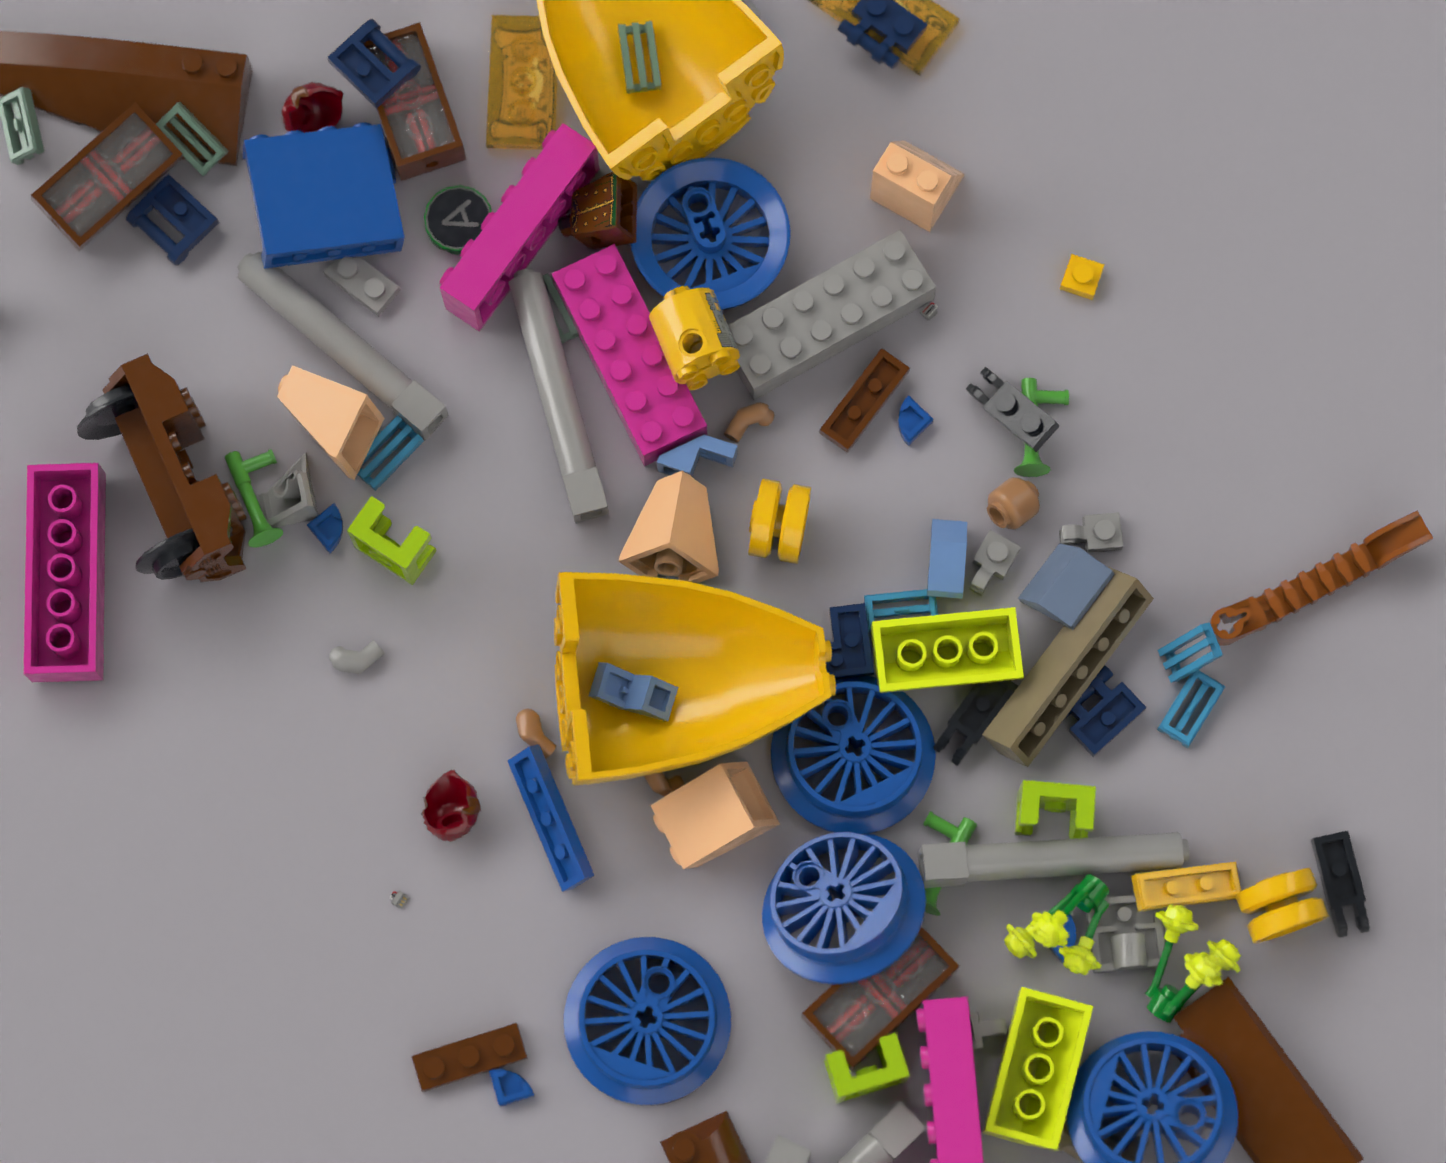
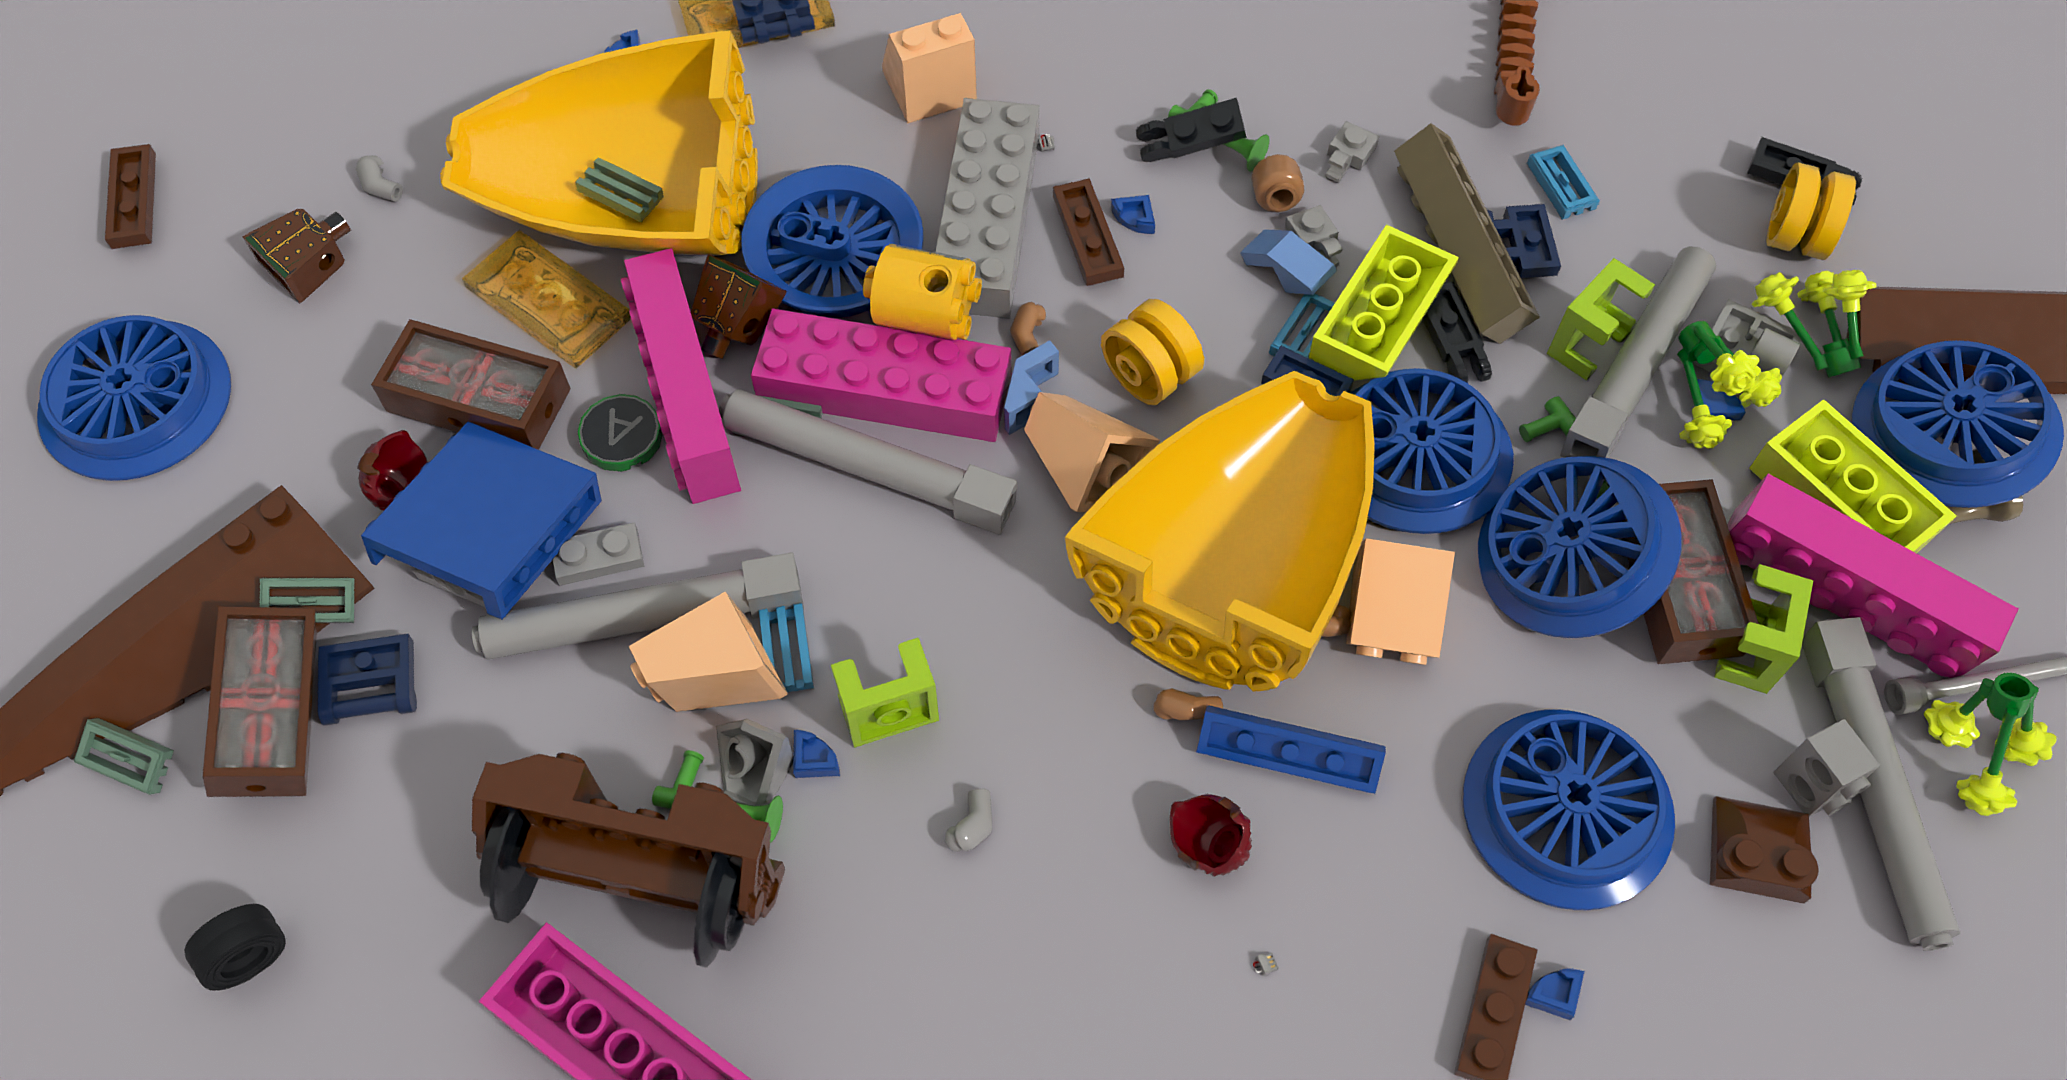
camera: 55 degrees left, 15 degrees down
(366, 70) = (407, 385): dark blue plate -> none
(632, 692) = (1228, 576): medium blue slope -> none
(1066, 585) = (1385, 189): sand blue slope -> none
(1082, 277) = (1113, 25): yellow plate -> none
(1173, 660) = (1512, 170): dark azure tile -> none
(1186, 886) = (1736, 276): yellow tile -> none

